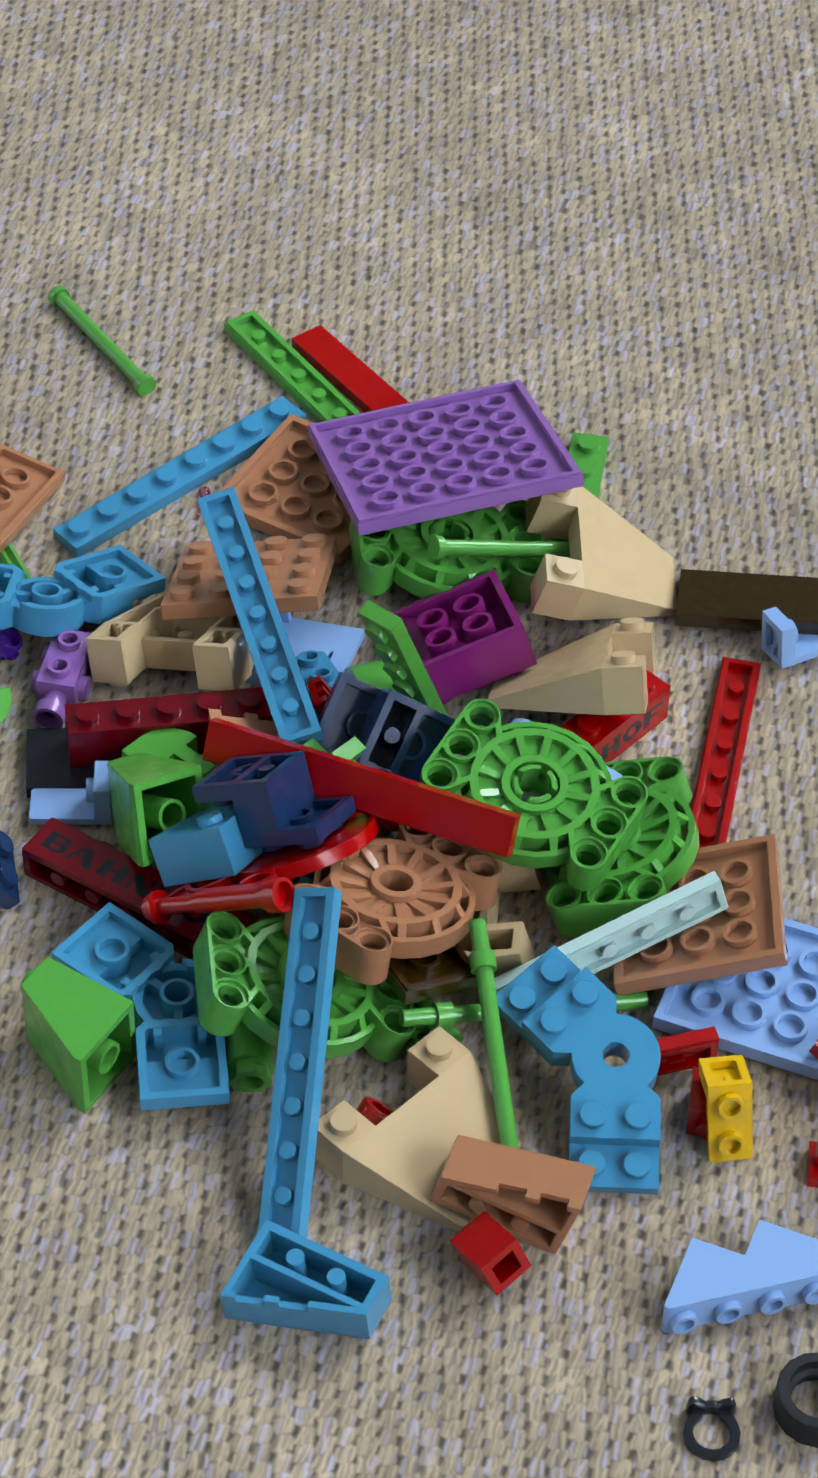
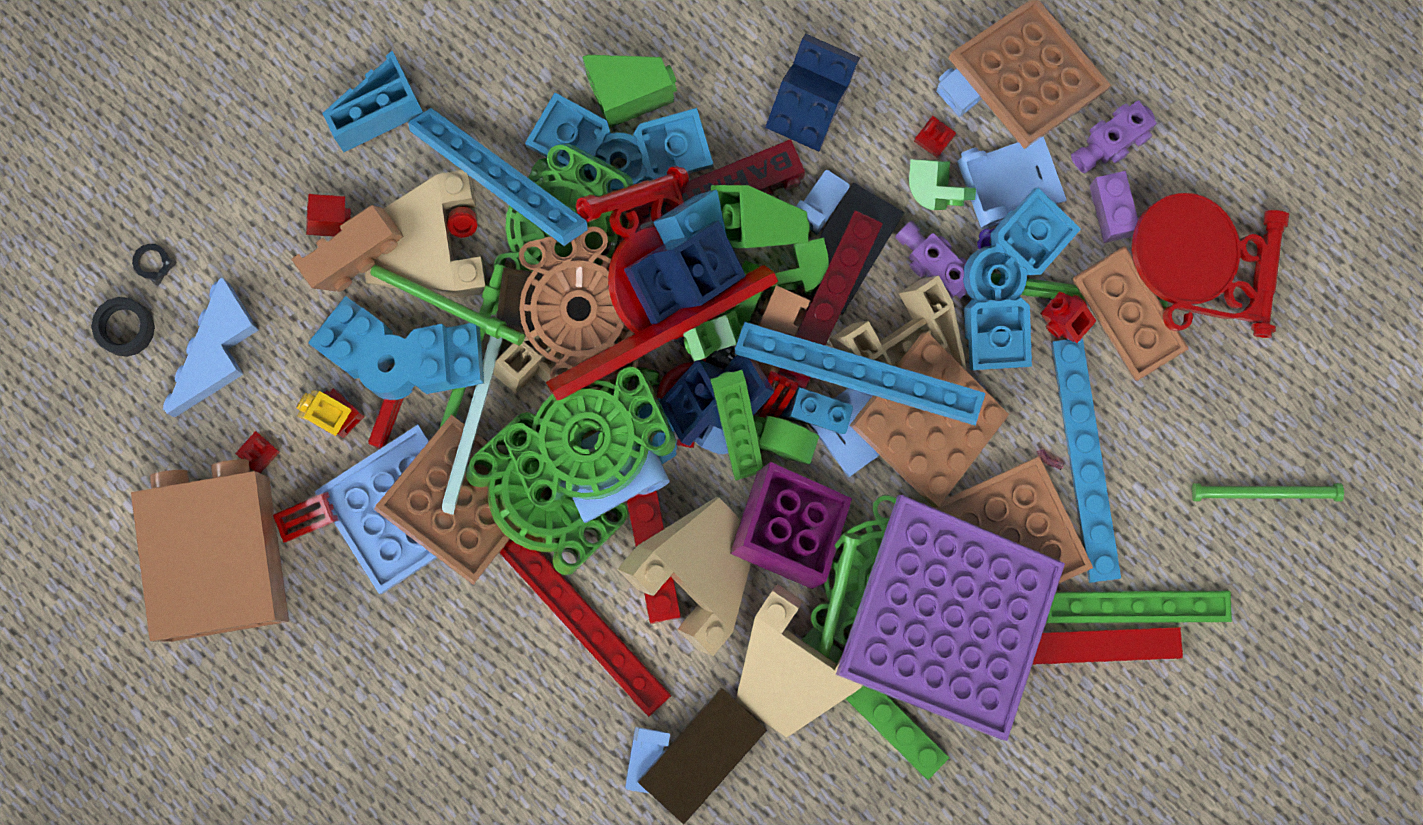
camera: 130 degrees right, 35 degrees up
(32, 530) = (1068, 317): none -> red brick

